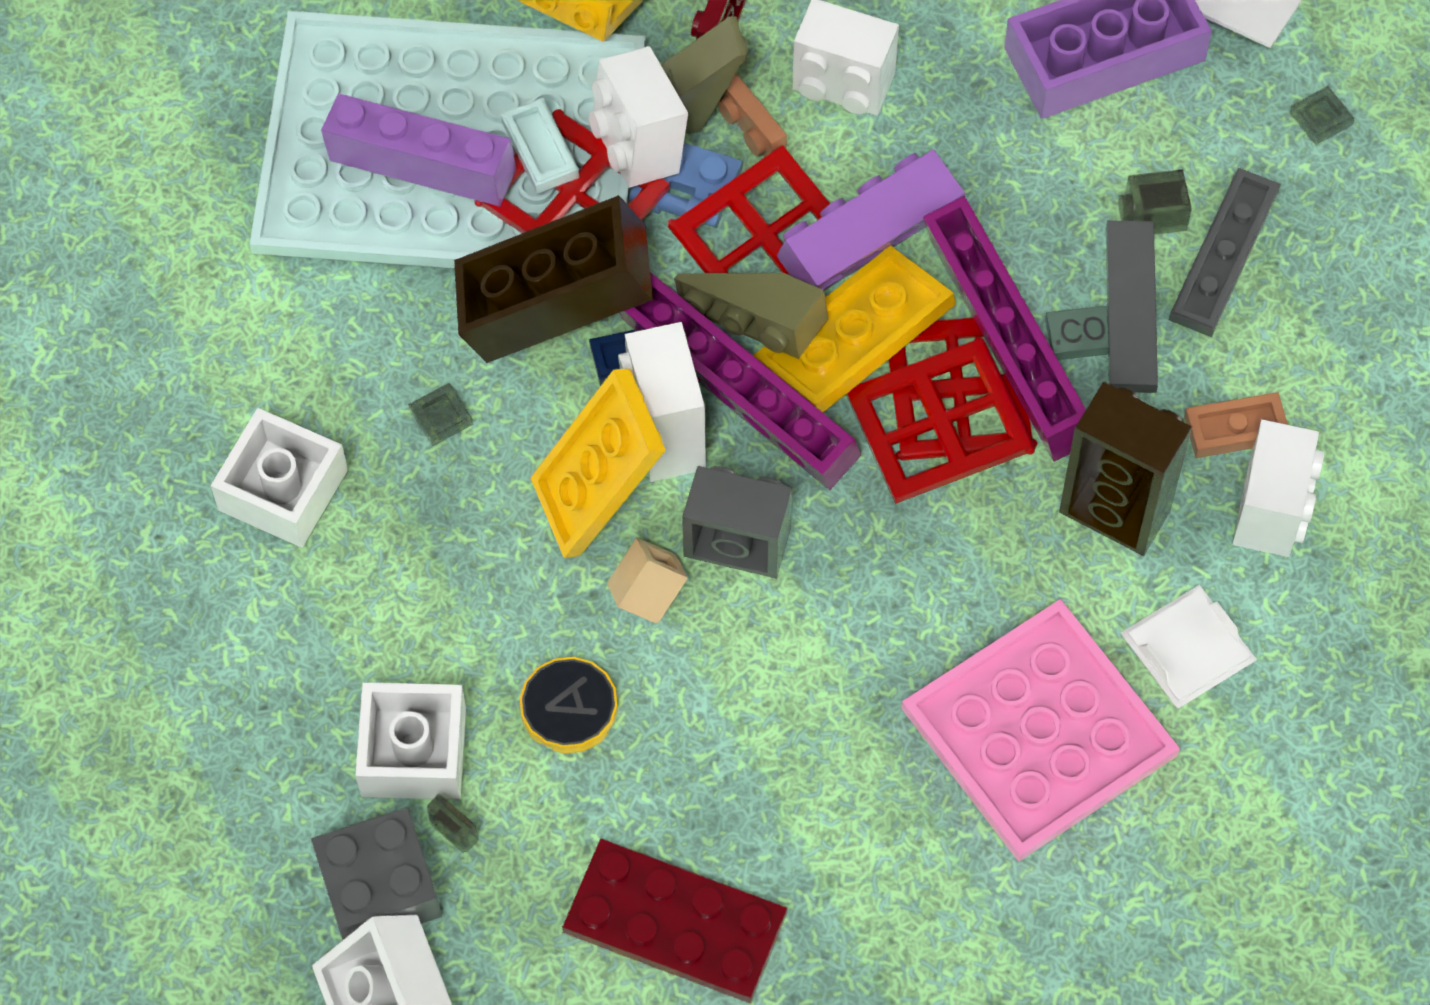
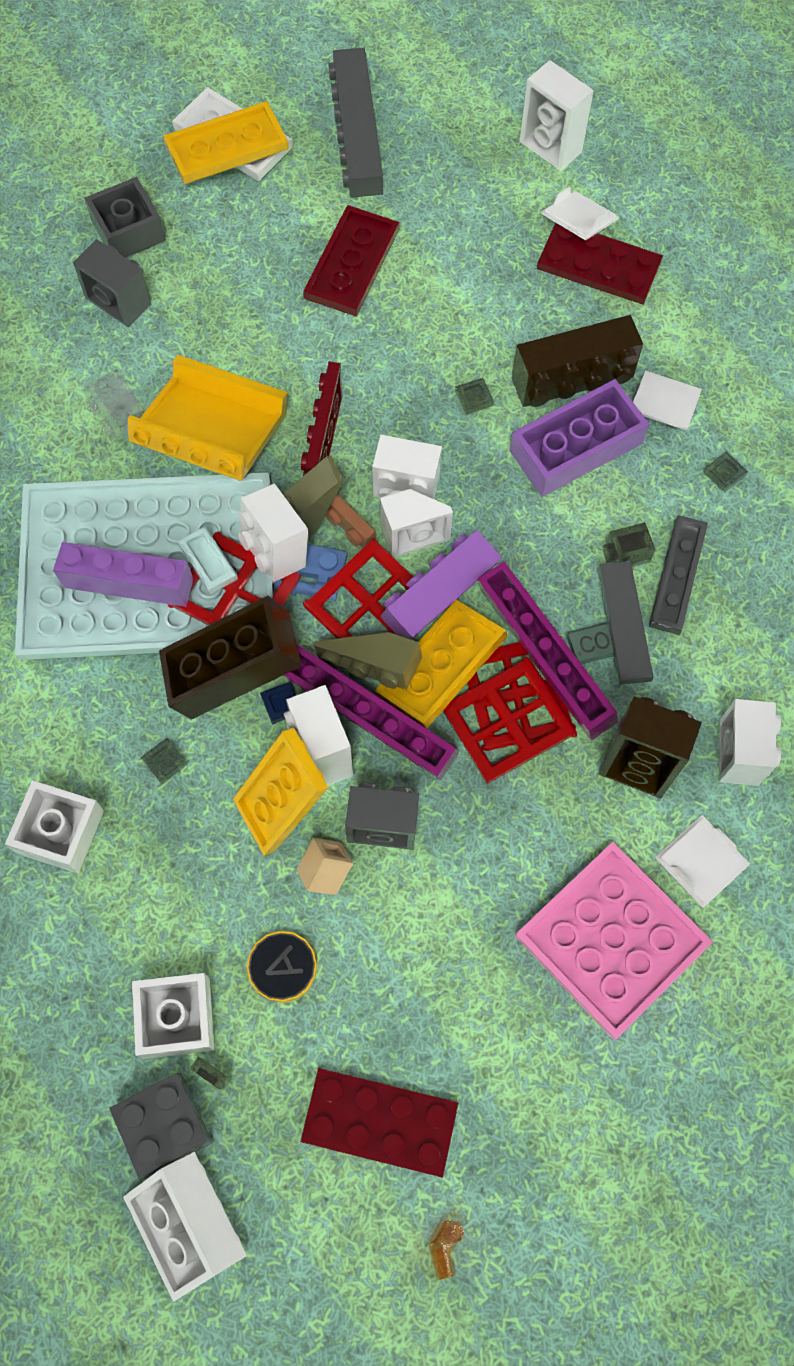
camera: 10 degrees left, 5 degrees up
(844, 128) = (413, 521): none -> white slope
(1231, 424) = (709, 695): nougat plate -> none

